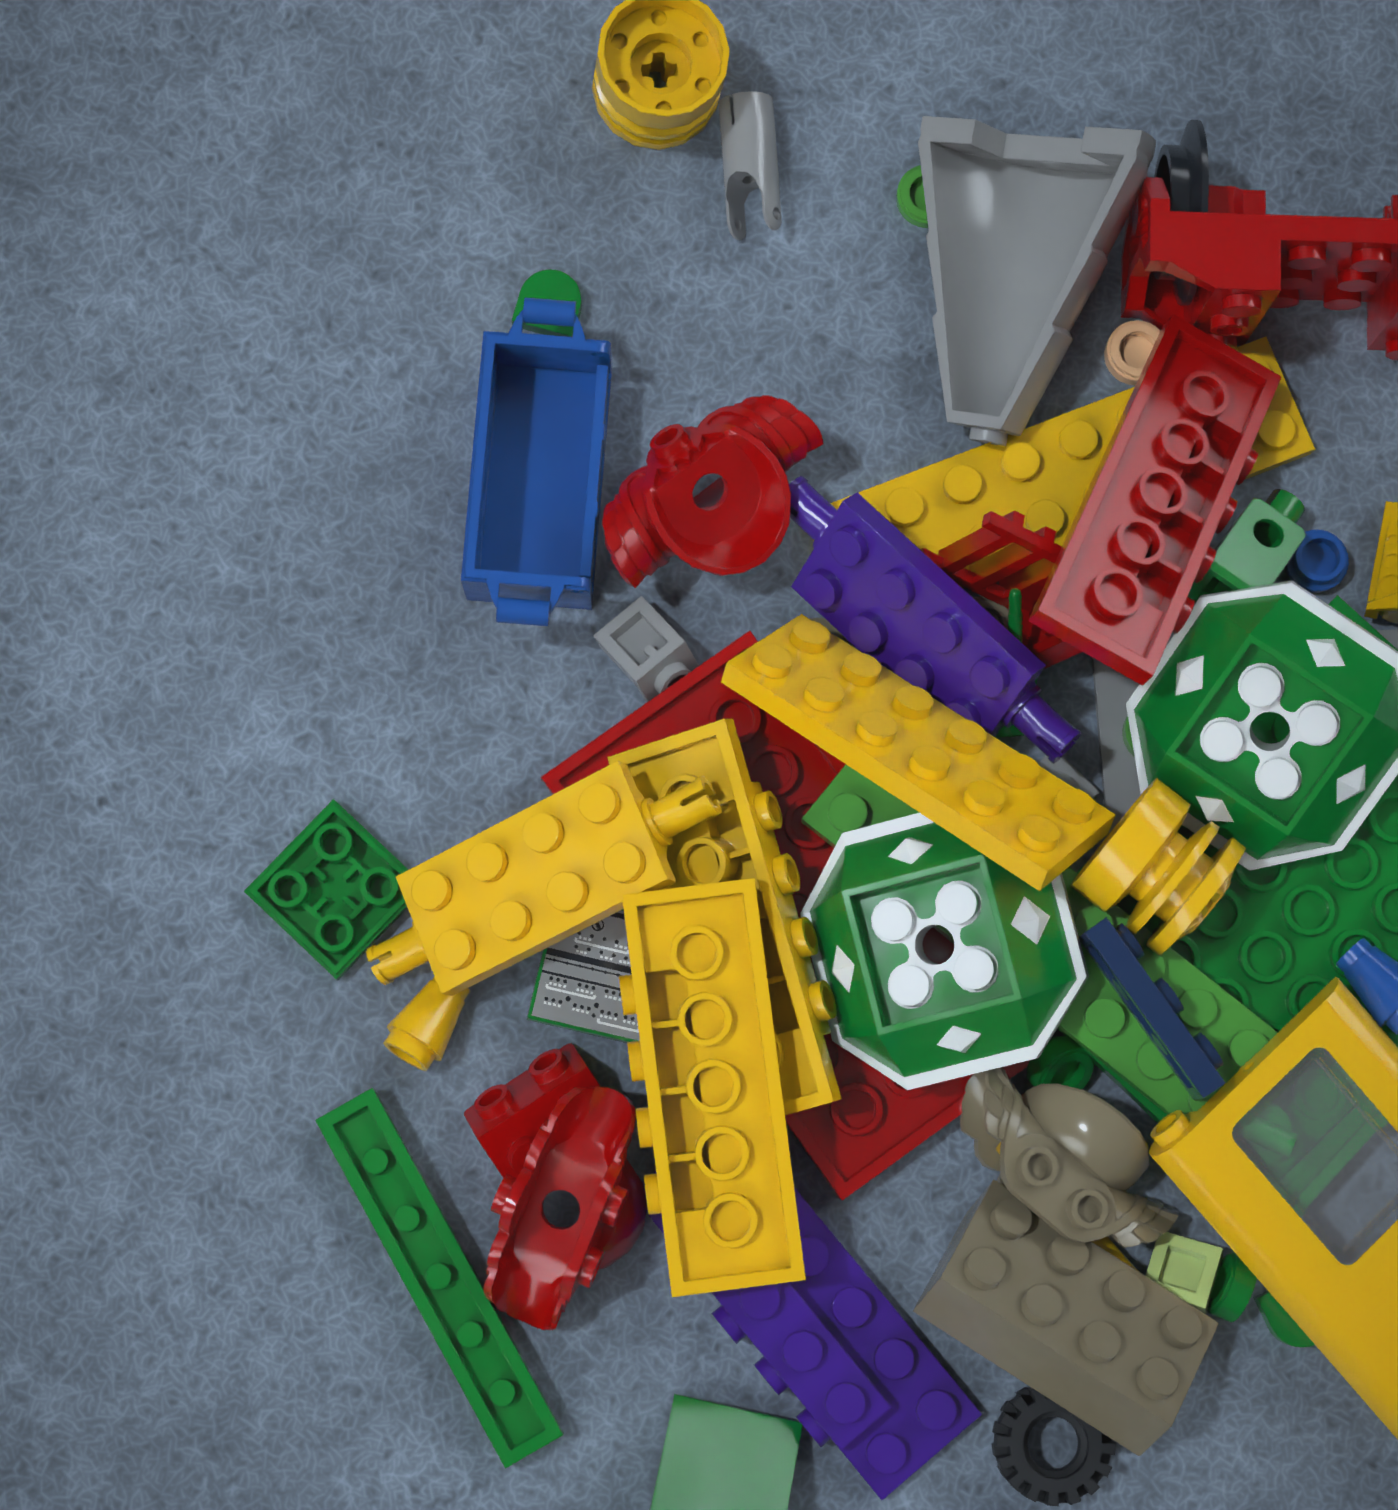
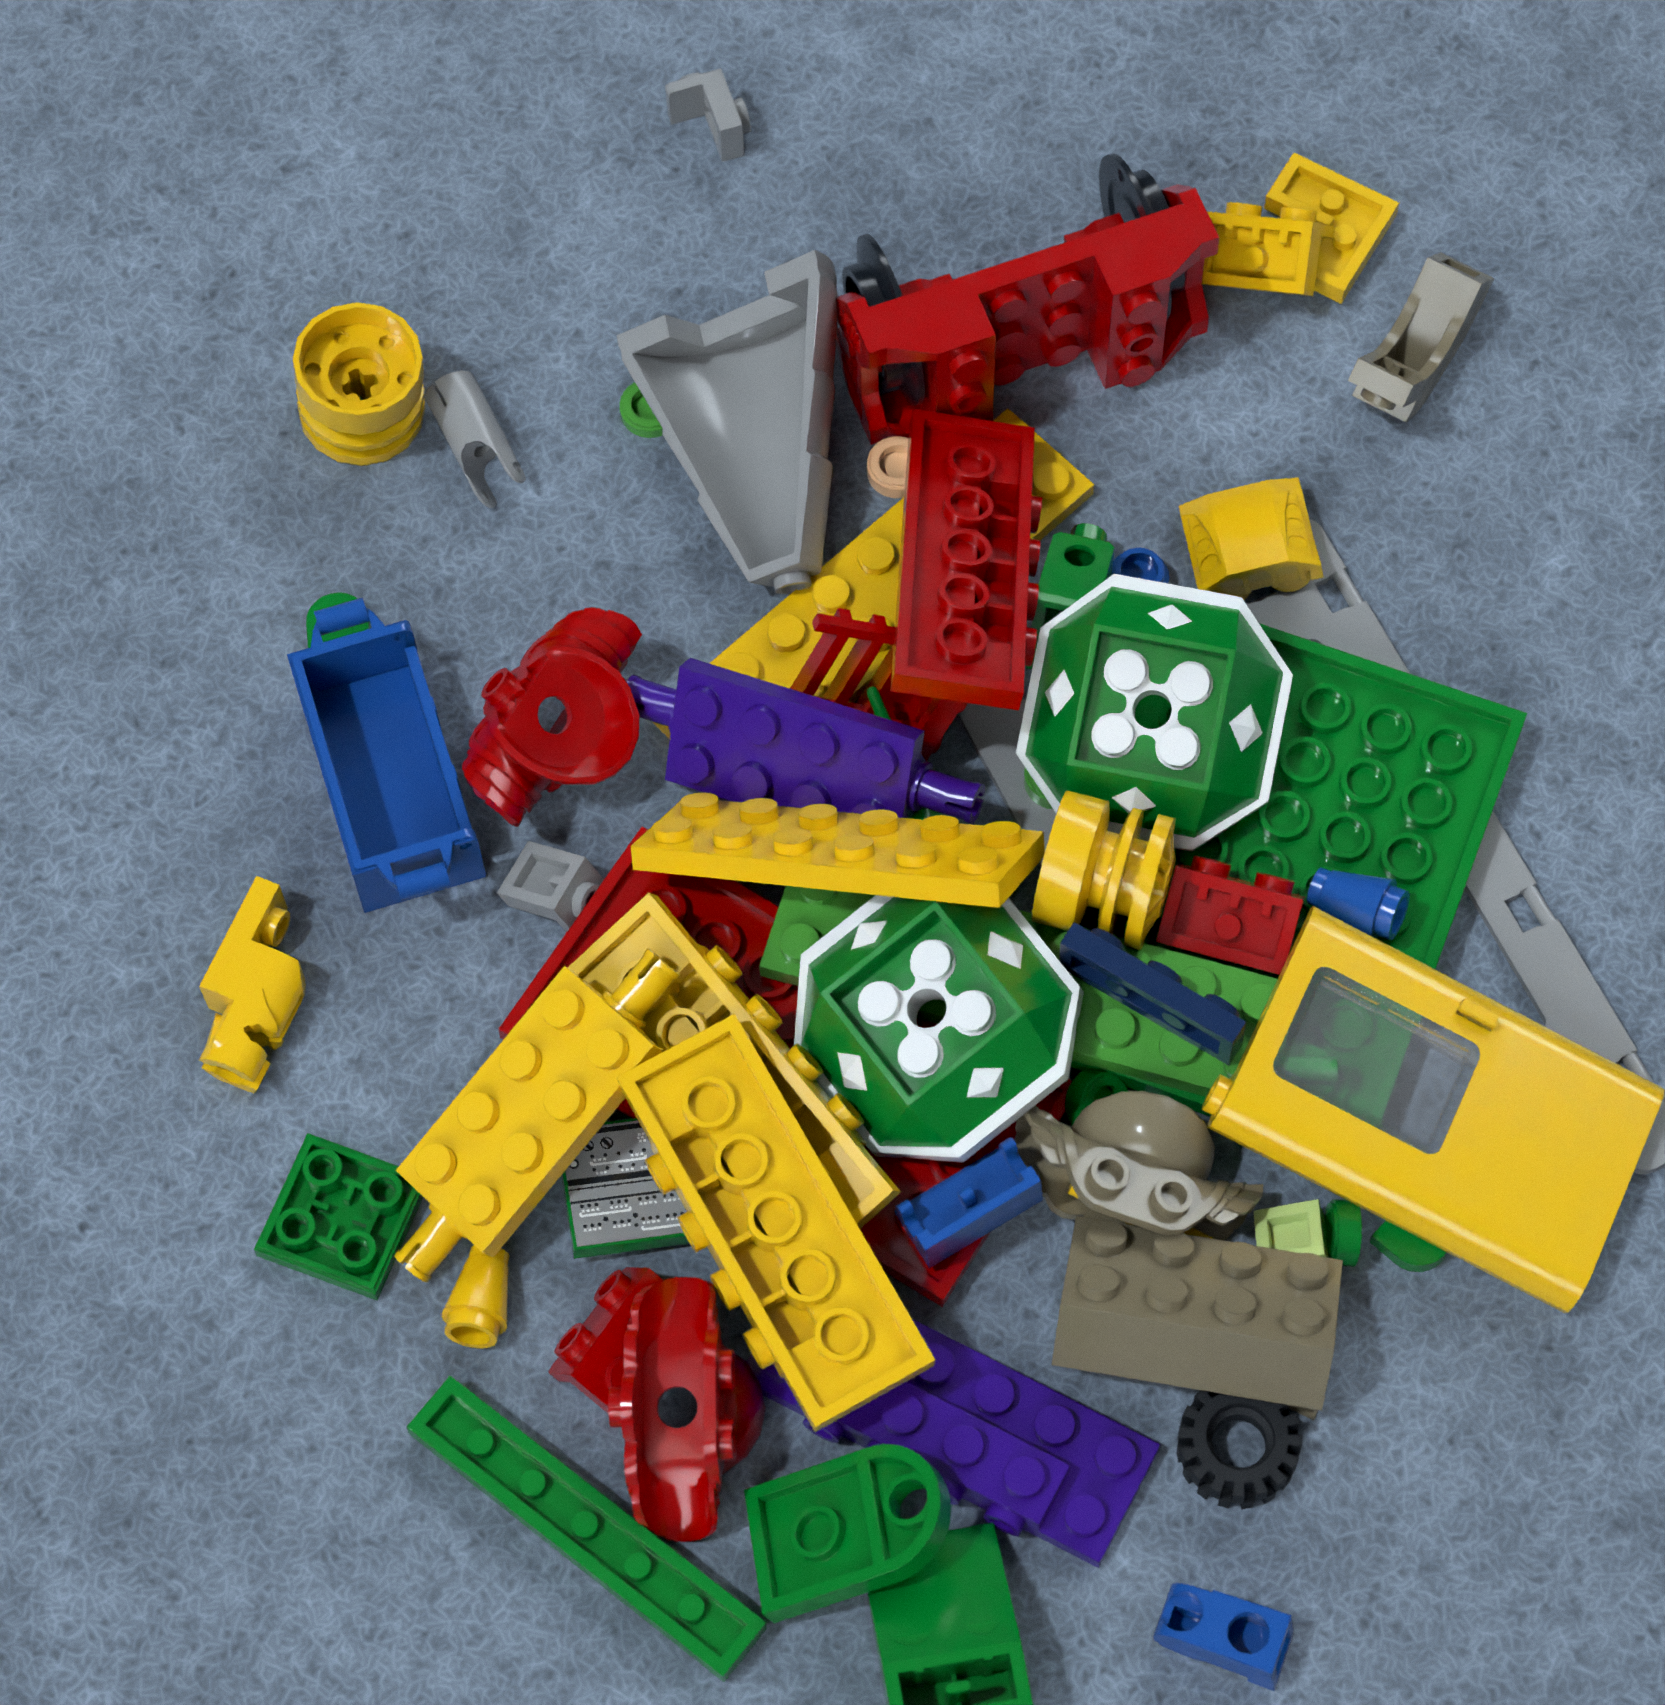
camera: 15 degrees left, 15 degrees down
(336, 639) = (252, 989): none -> yellow plate
(658, 1383) = (841, 1528): none -> green plate
(901, 1124) = (970, 1203): none -> blue hinge
(1261, 951) = (1231, 916): none -> red bracket

